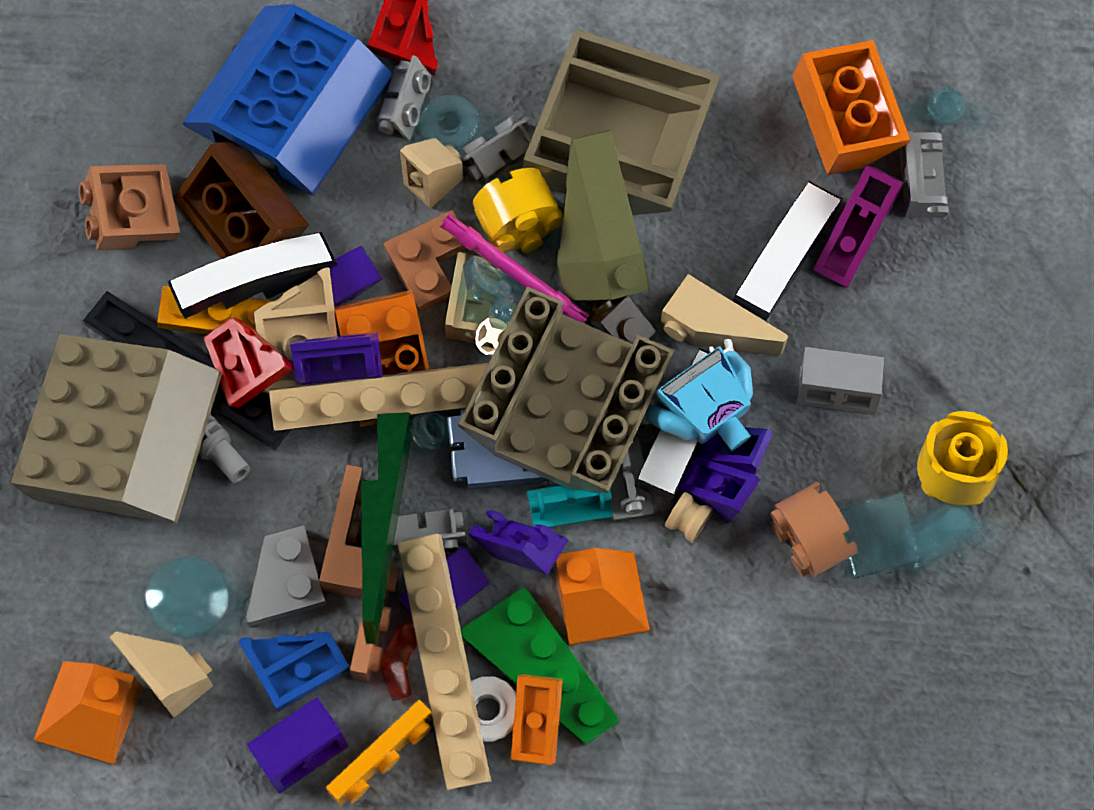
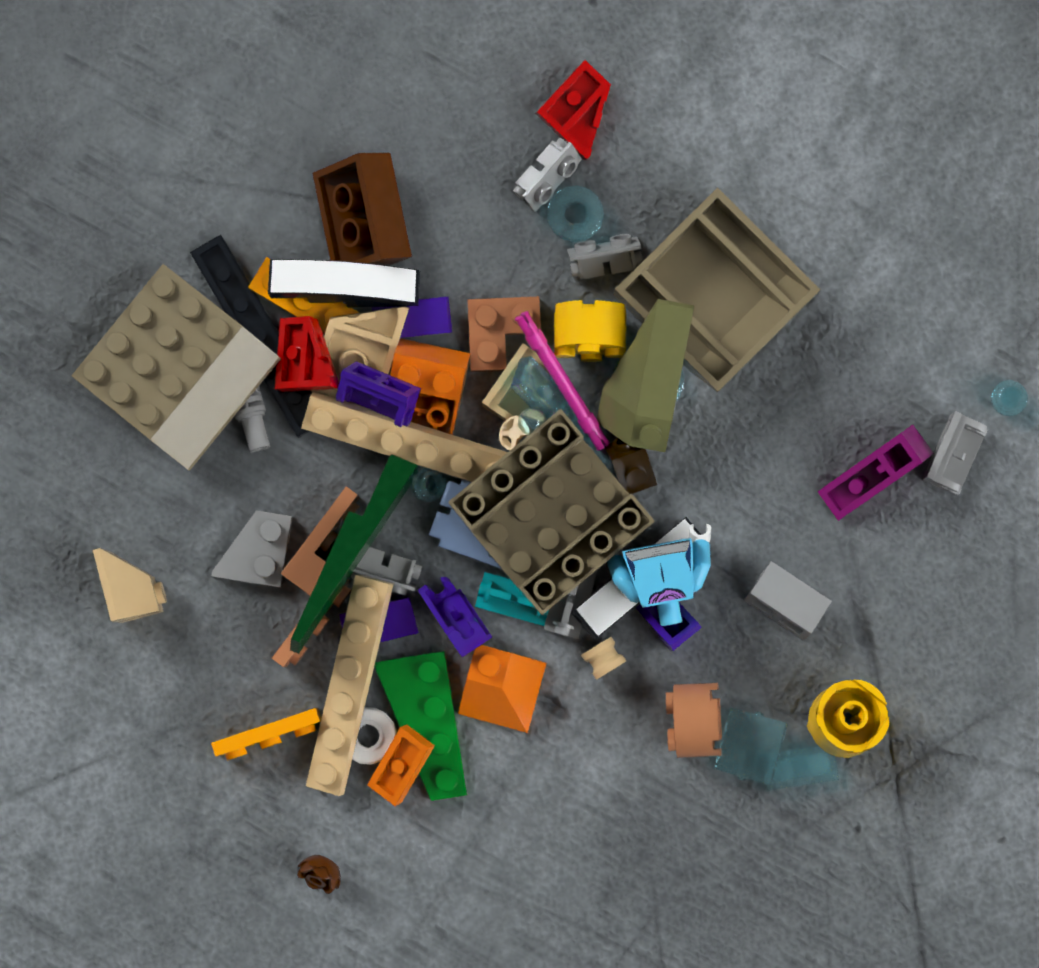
camera: 30 degrees right, 15 degrees up
(89, 710) = (56, 587): orange slope -> none
(128, 205) = (270, 167): nougat plate -> none
(187, 596) = (173, 530): clear light blue dish -> none
(292, 93) = (450, 126): blue slope -> none
(294, 665) = (232, 628): blue wing -> none
(298, 745) = (206, 694): dark purple hinge -> none
(396, 659) = (314, 662): clear red arm -> none
(430, 169) = (538, 254): tan slope -> none
(709, 318) = (705, 496): tan slope -> none
(718, 486) = (638, 645): dark purple slope -> none
(787, 250) = (802, 467): white slope -> none
(849, 106) = (922, 364): orange slope -> none

